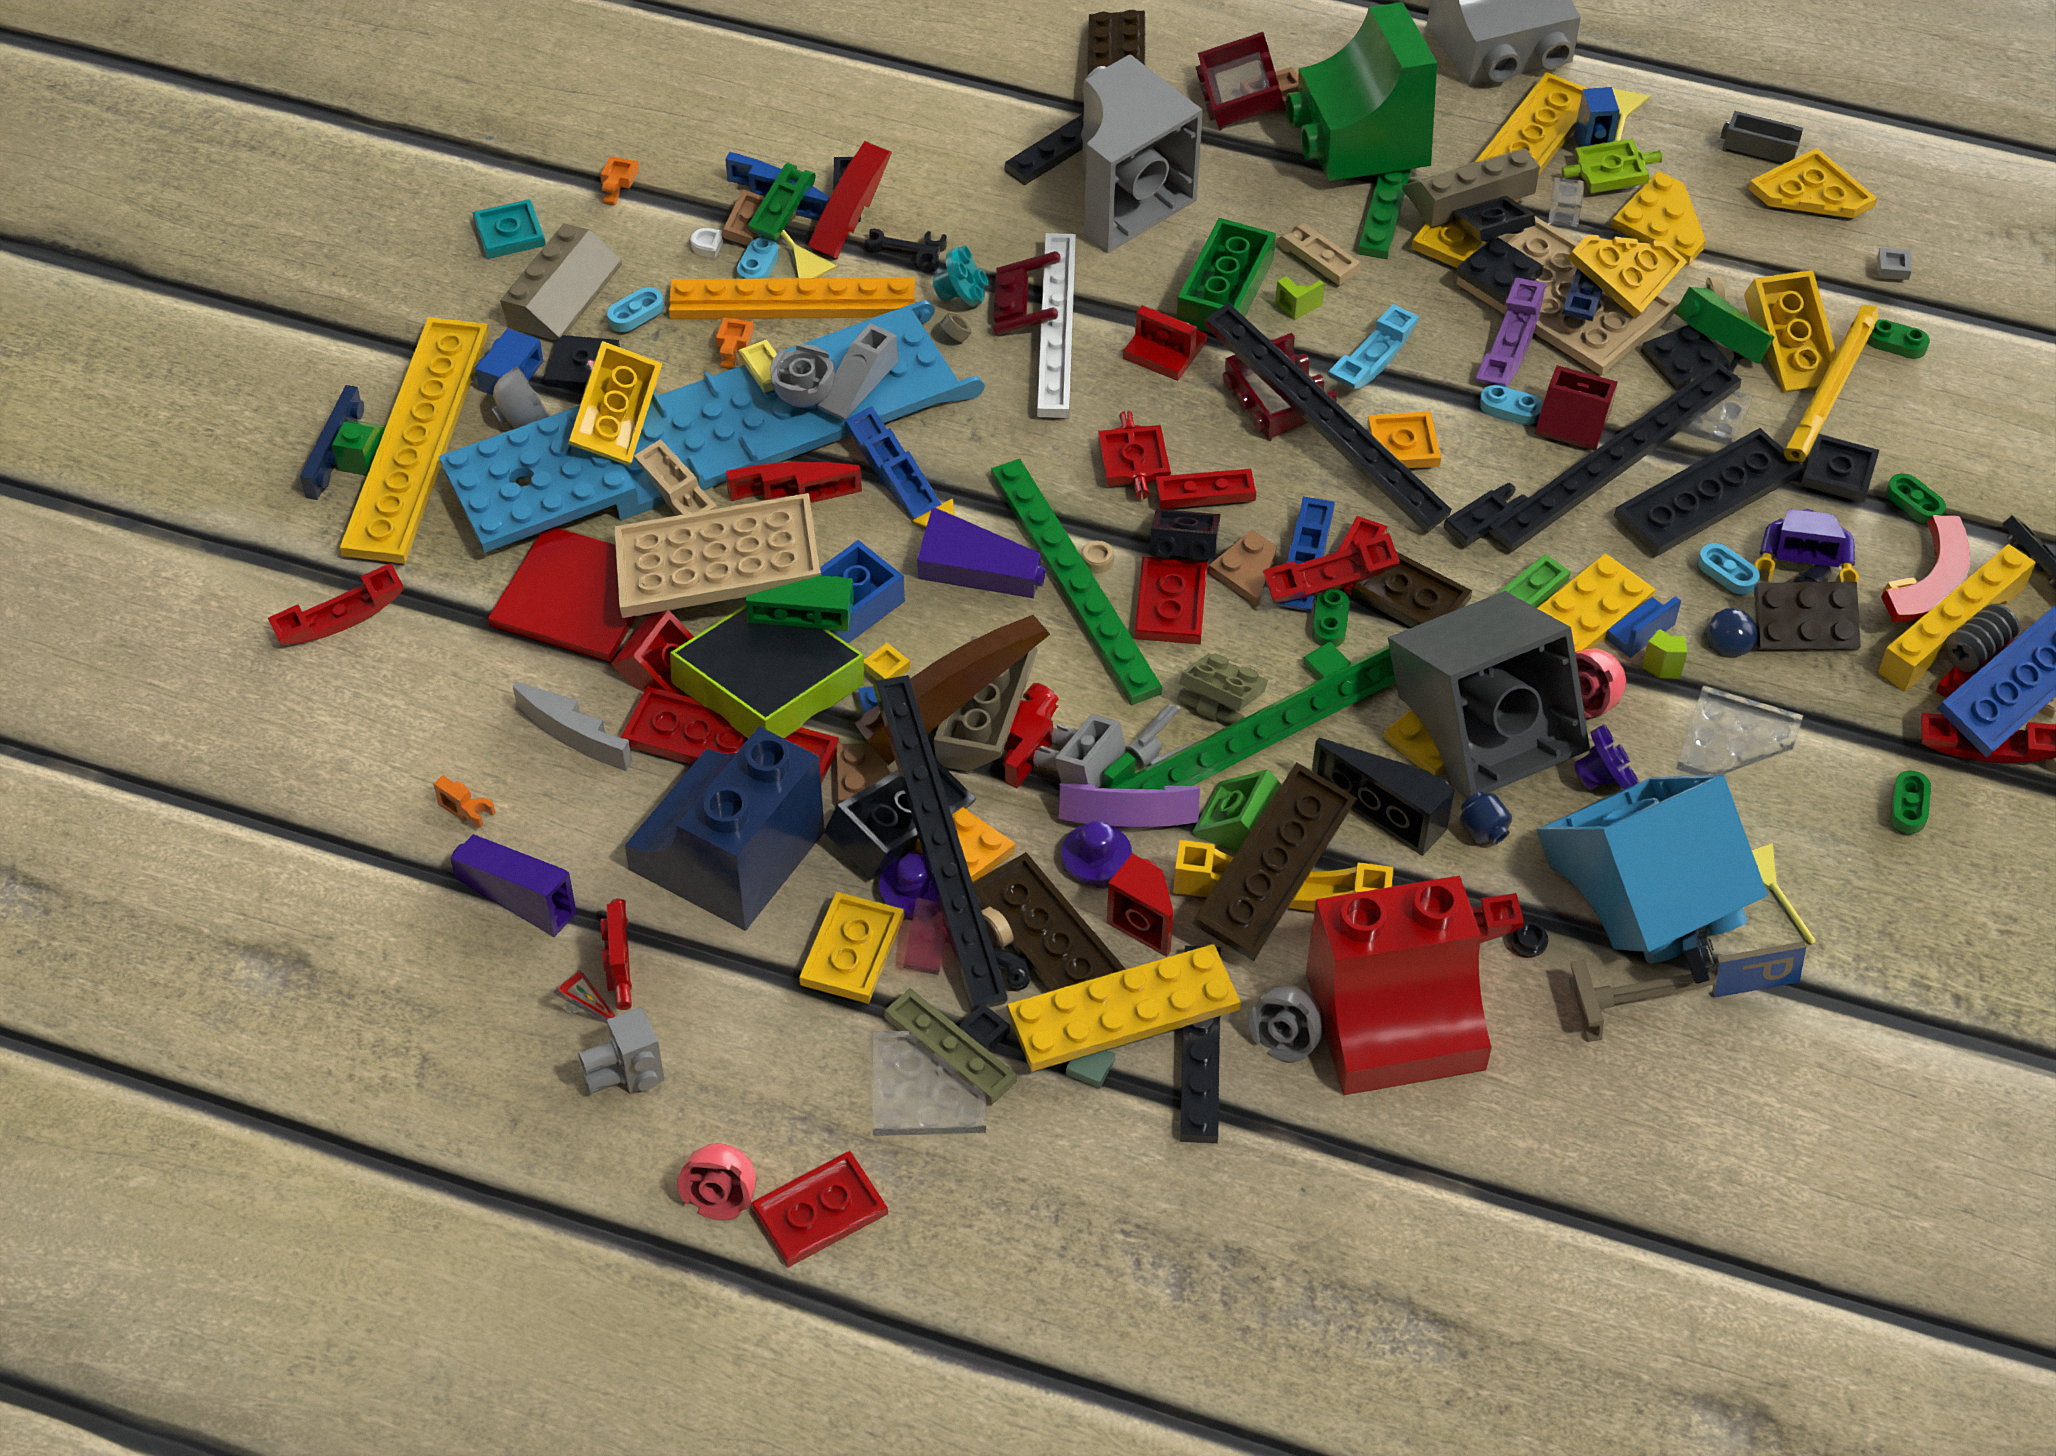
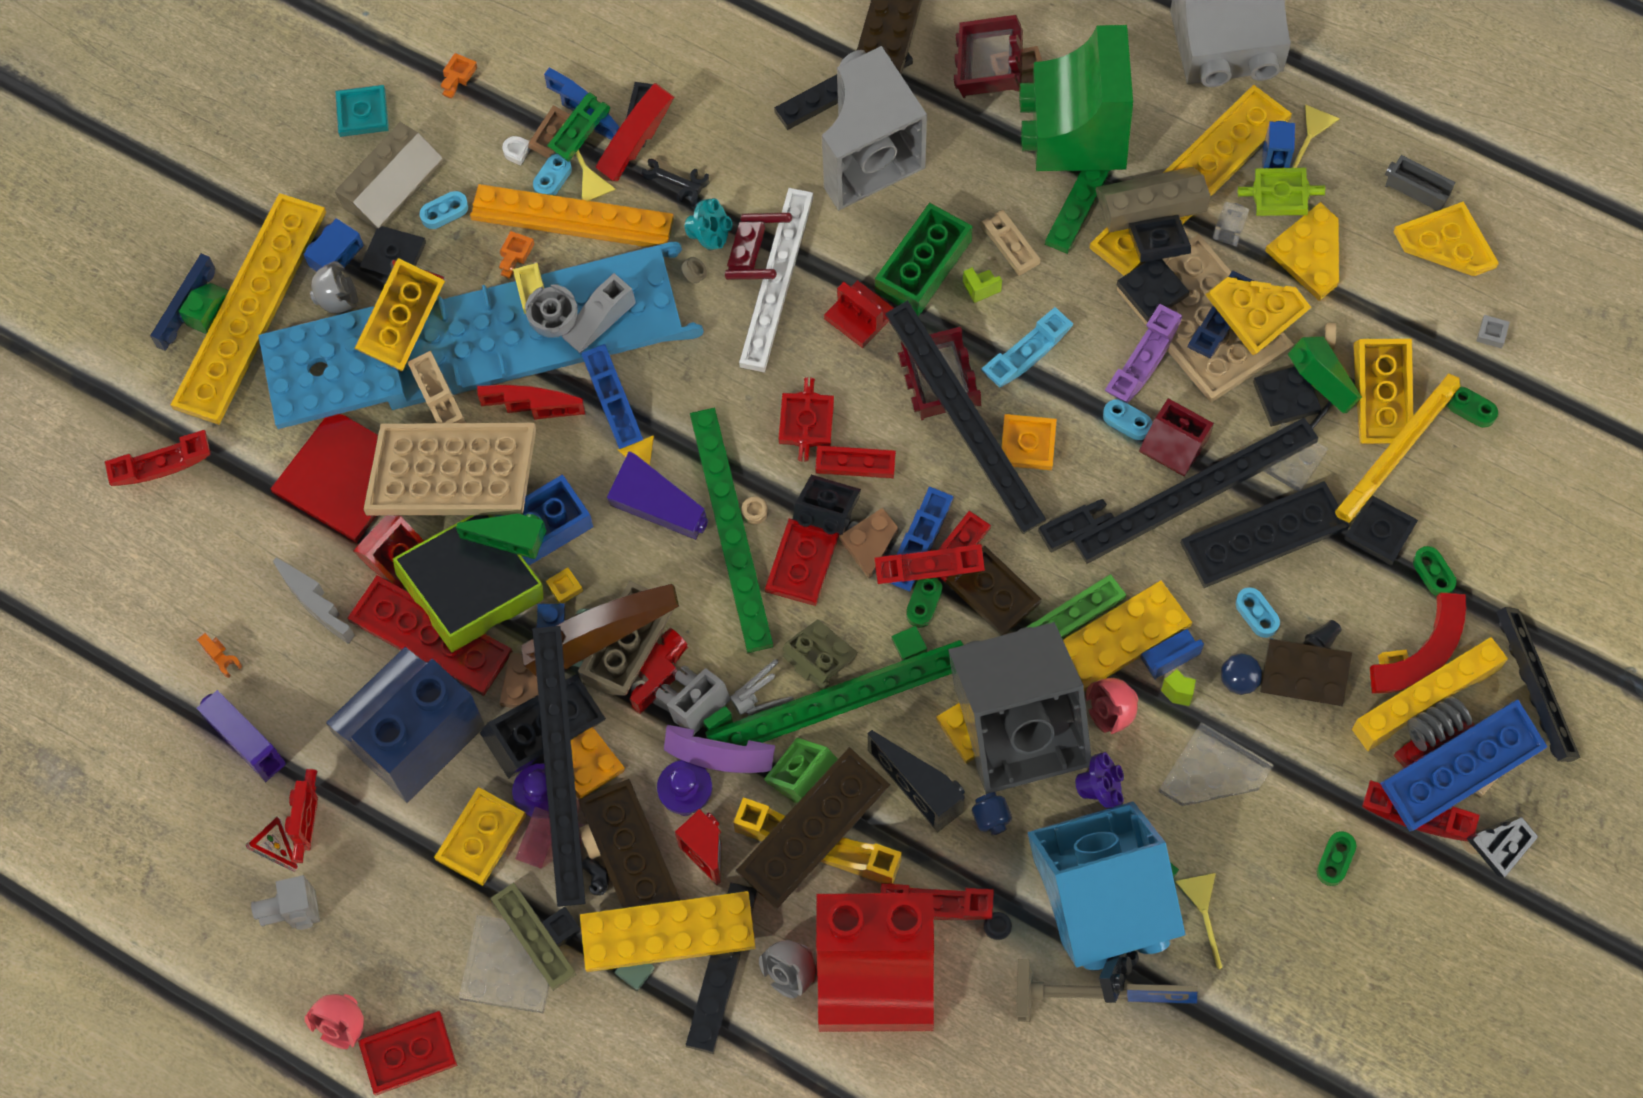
camera: 15 degrees right, 15 degrees up
(1808, 539) = (1330, 599): dark purple torso -> none

